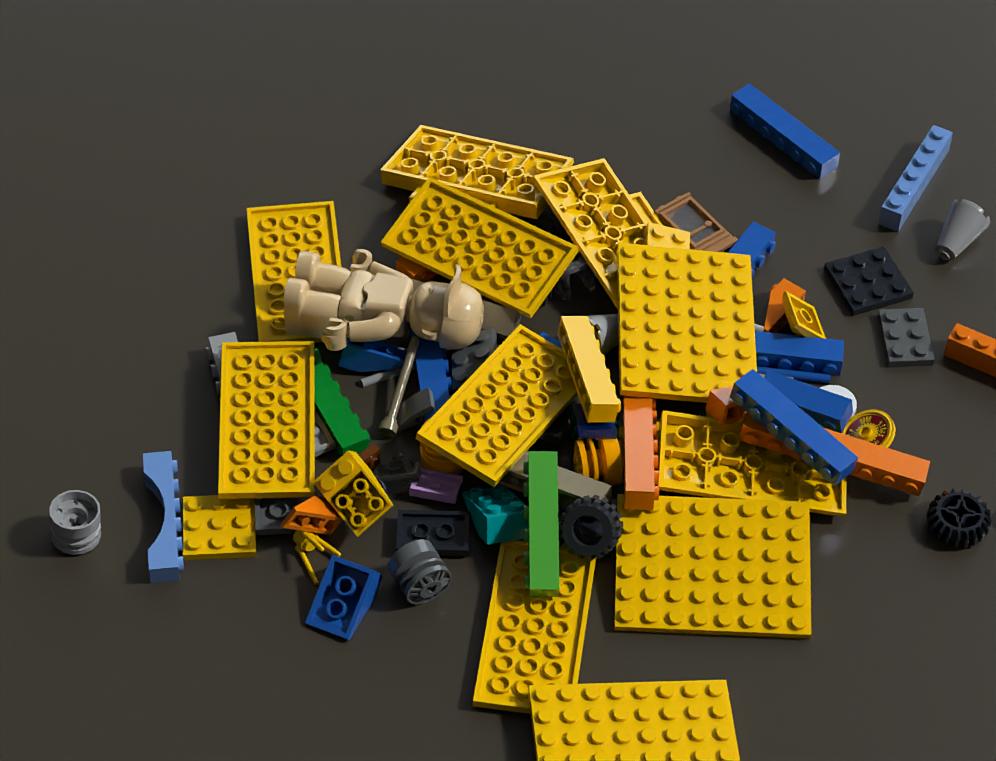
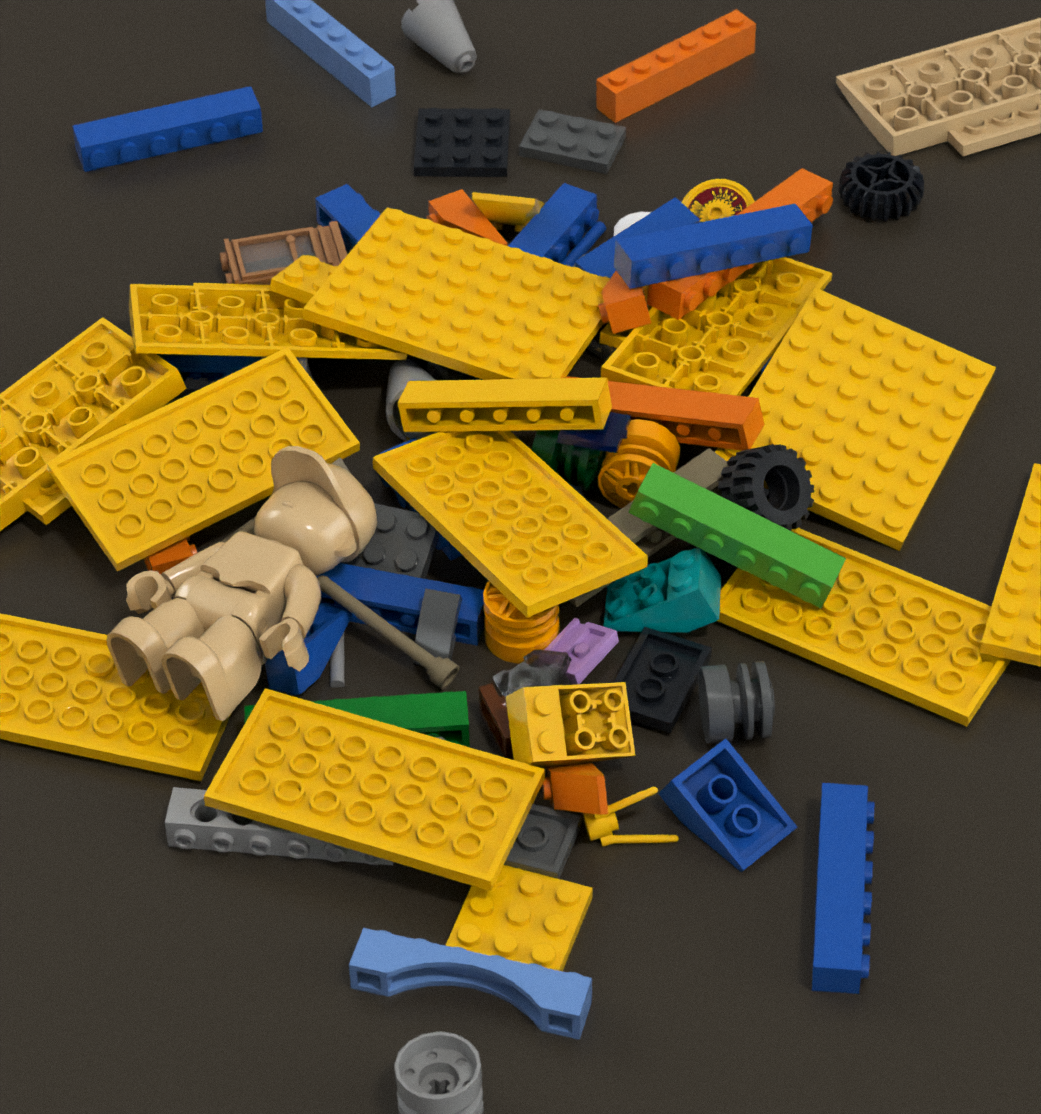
camera: 65 degrees left, 5 degrees down
(306, 672) = (840, 889): none -> blue brick

